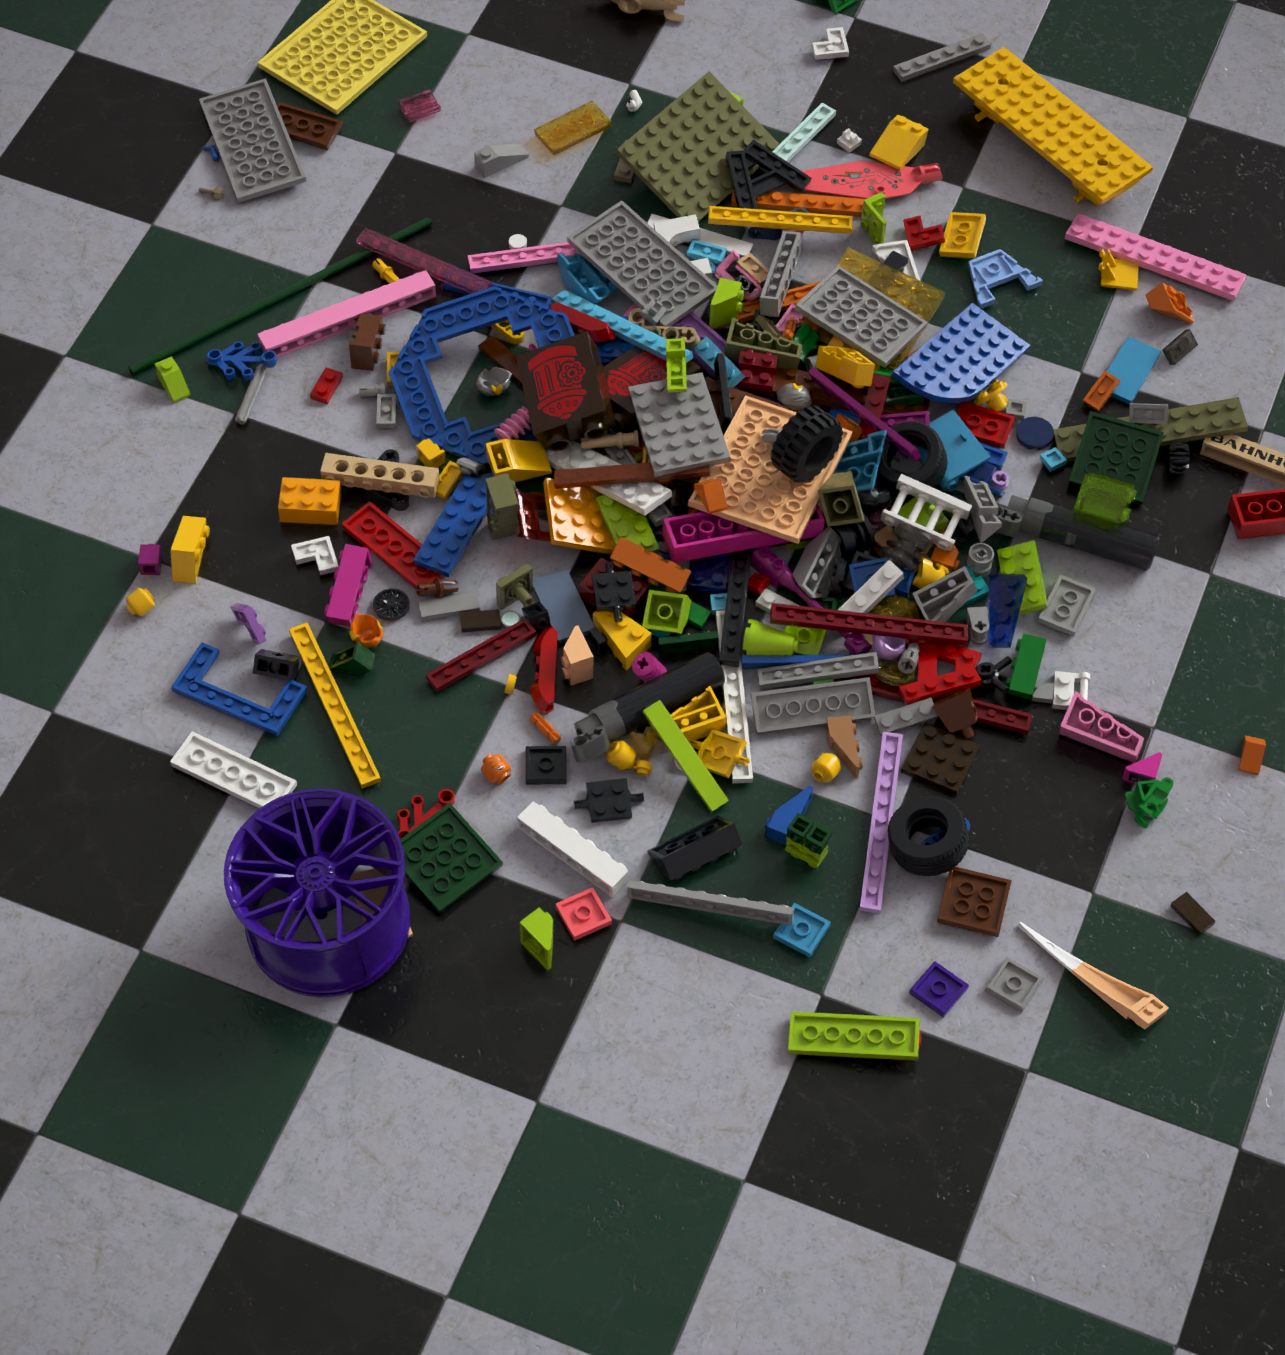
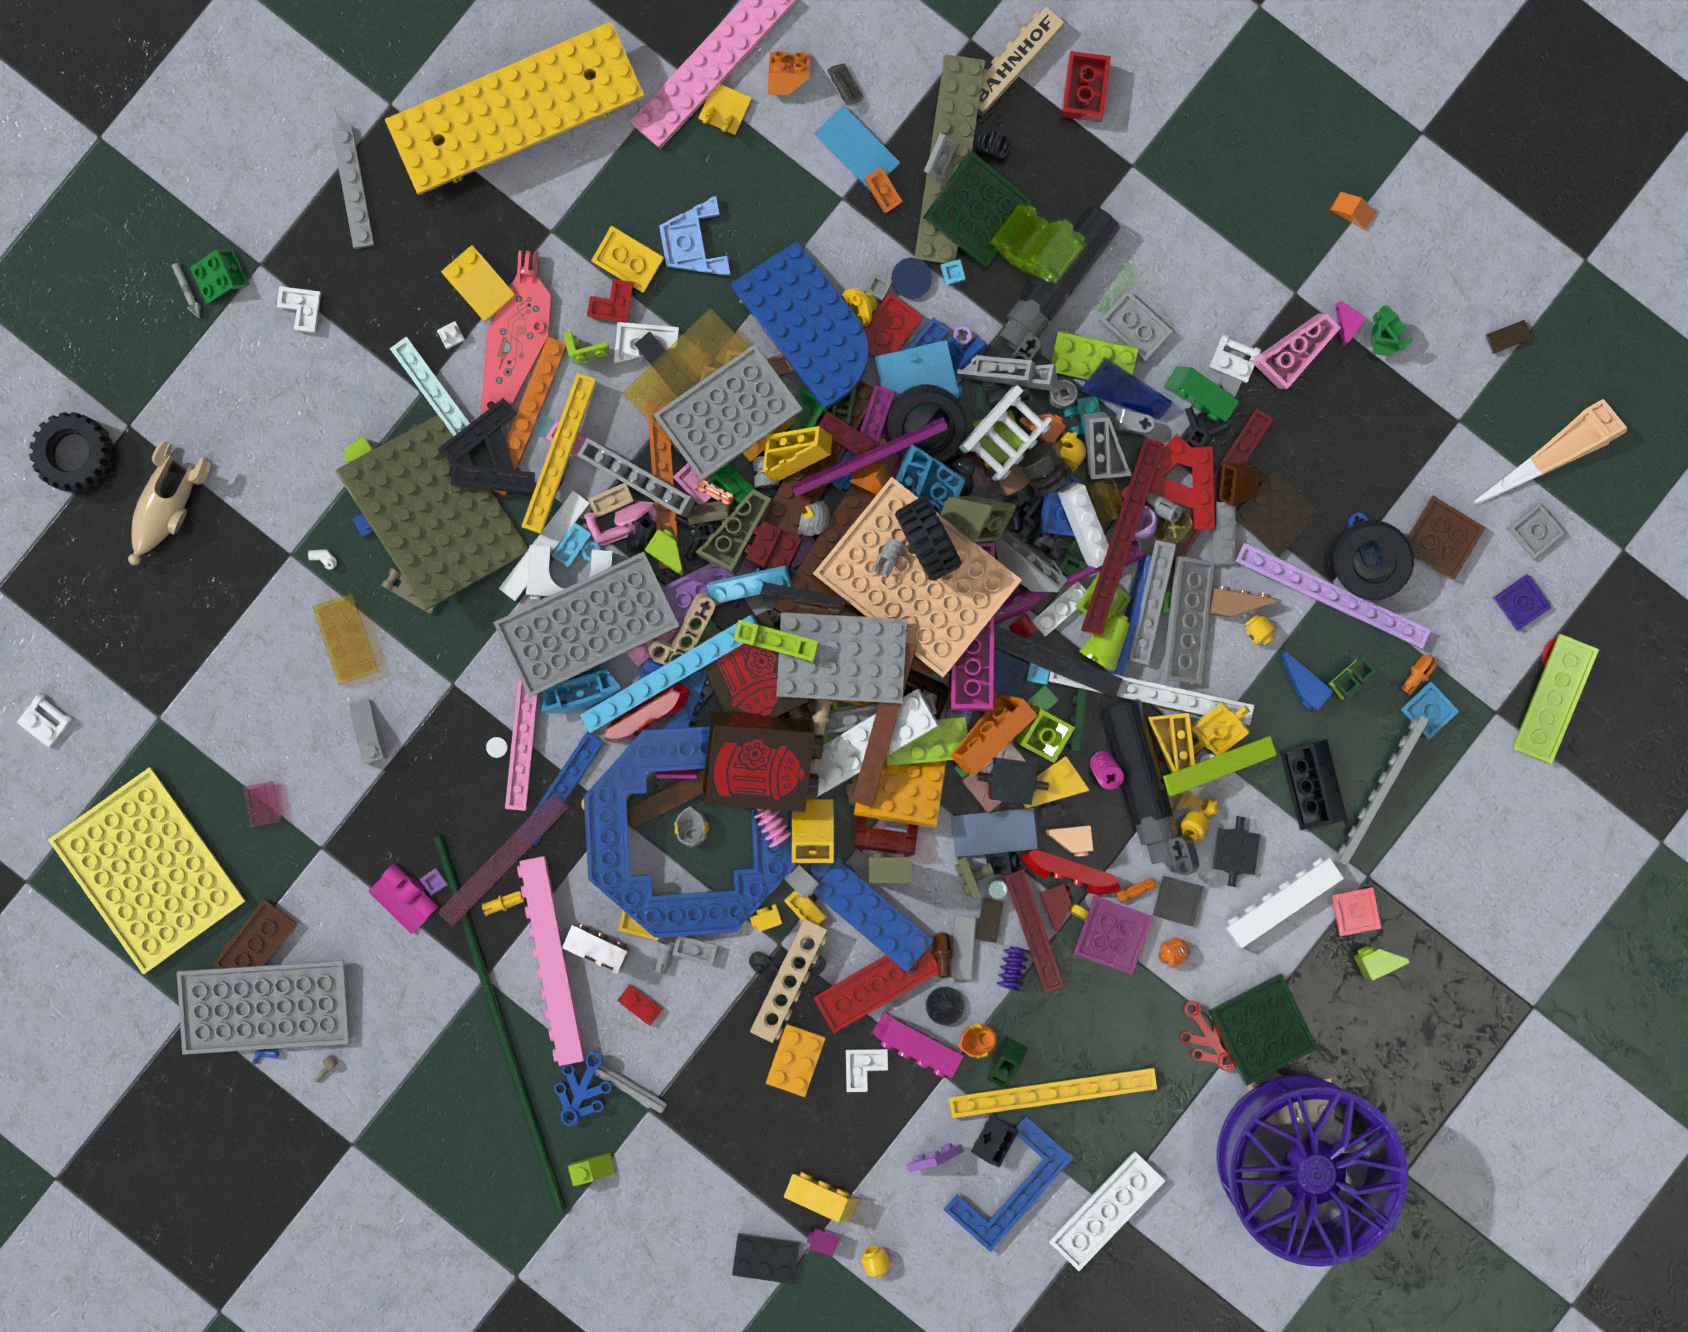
camera: 75 degrees left, 30 degrees up
(123, 524) = (765, 1258): none -> black plate
(370, 209) = (403, 898): none -> dark pink panel
(390, 226) = (433, 881): none -> medium lavender tile
(441, 643) = (1013, 968): none -> dark purple piece
(497, 717) = (1112, 935): none -> magenta plate
(512, 662) = (1057, 903): none -> dark red slope
(653, 312) = (662, 634): light grey tile -> none
(711, 495) = (944, 652): orange slope -> none
(832, 912) = (1420, 672): none -> orange arm

